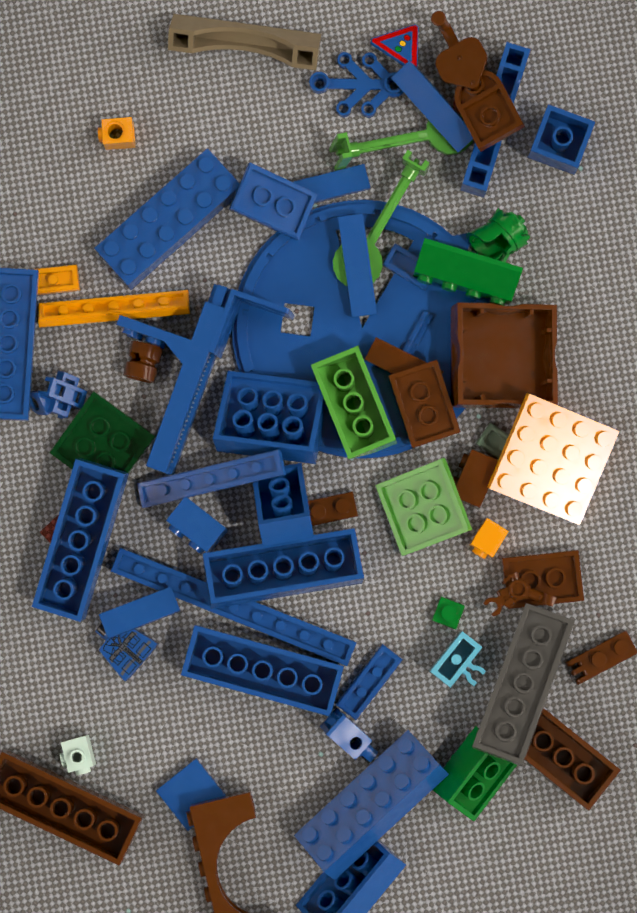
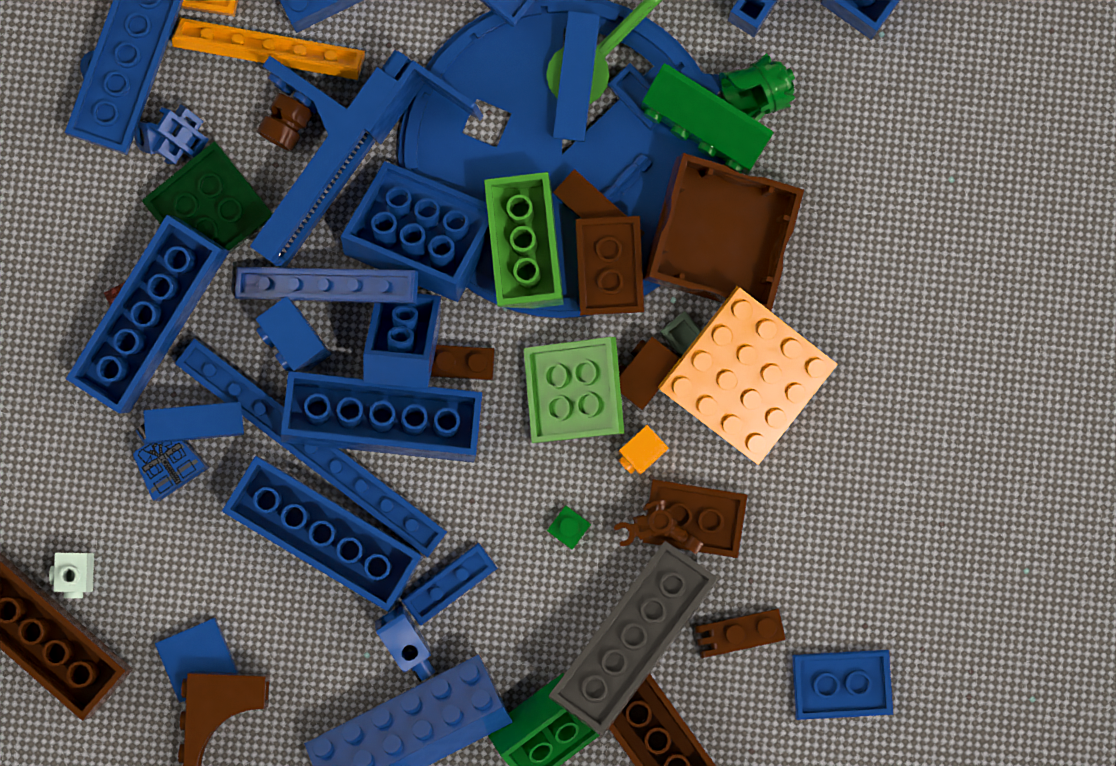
camera: 15 degrees right, 0 degrees up
(456, 660) = (560, 586): medium azure brick -> none

